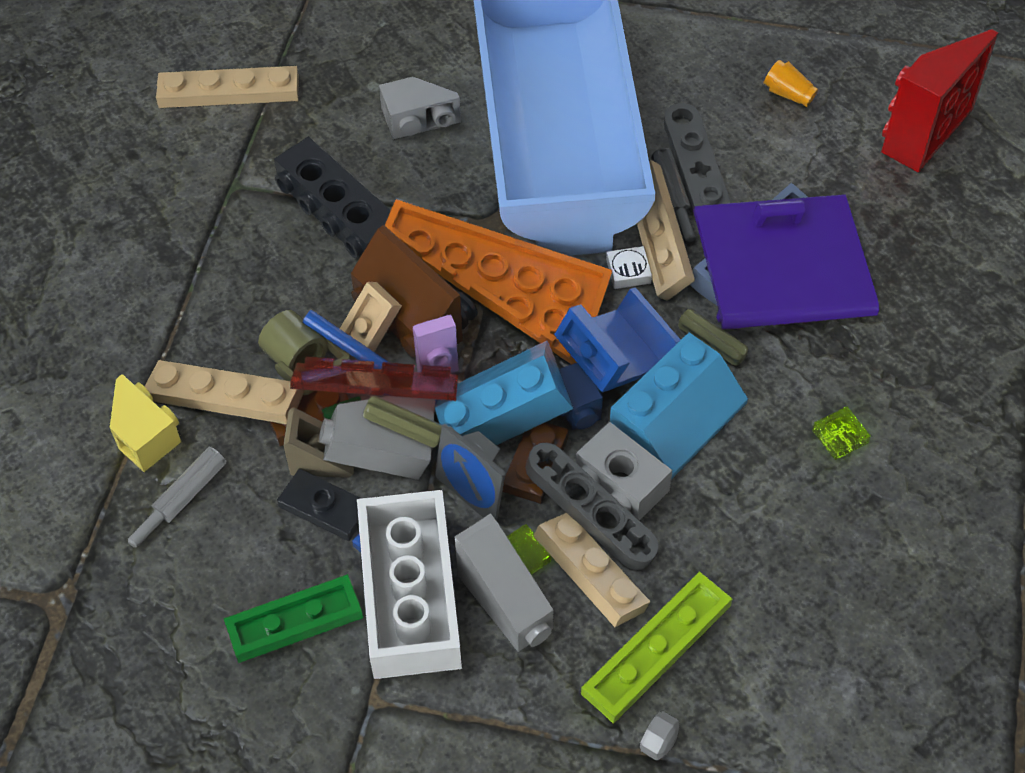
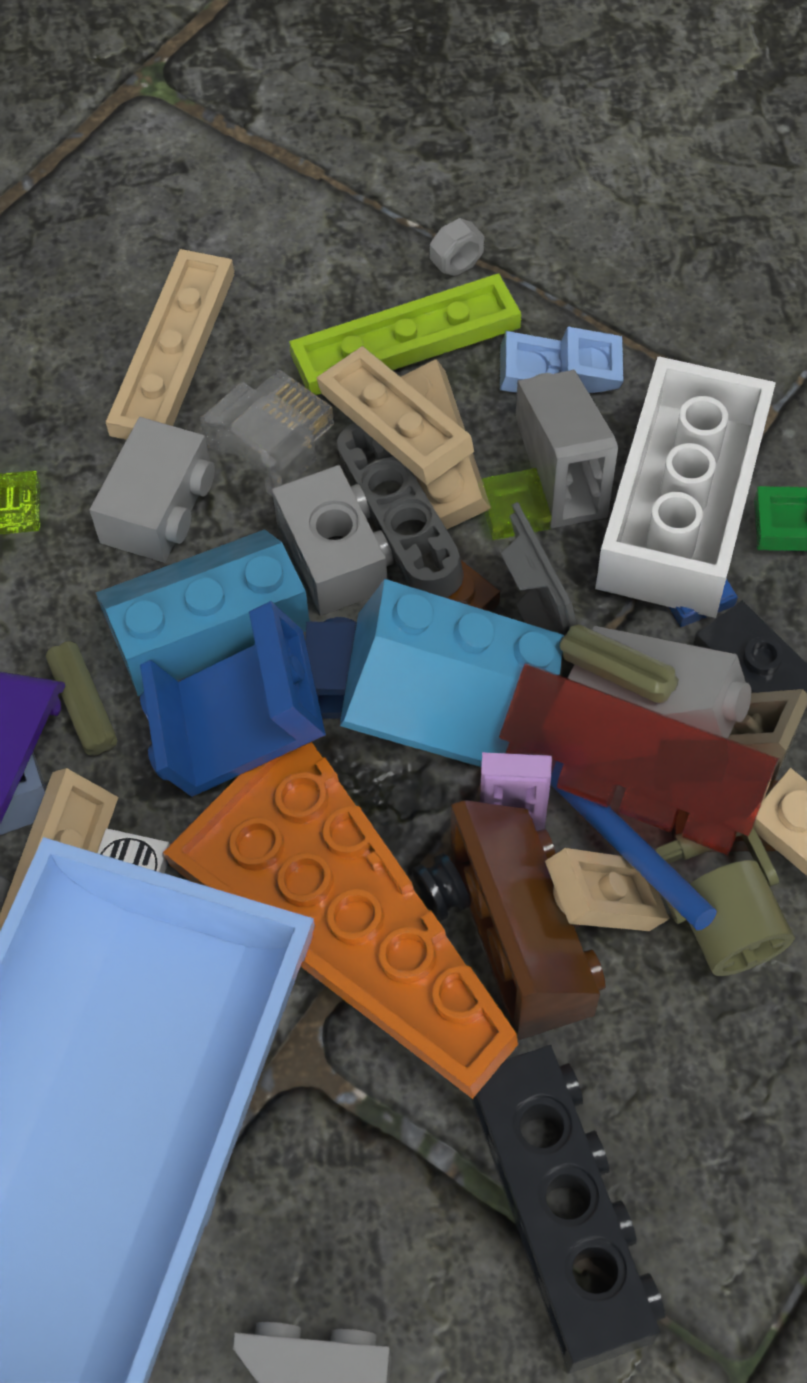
camera: 155 degrees left, 5 degrees up
(538, 674) = (592, 354): none -> light blue slope
(623, 549) = (395, 415): none -> tan plate
(707, 534) = (269, 427): none -> clear piece
(753, 462) = (152, 490): none -> light grey brick
(813, 575) = (172, 342): none -> tan plate

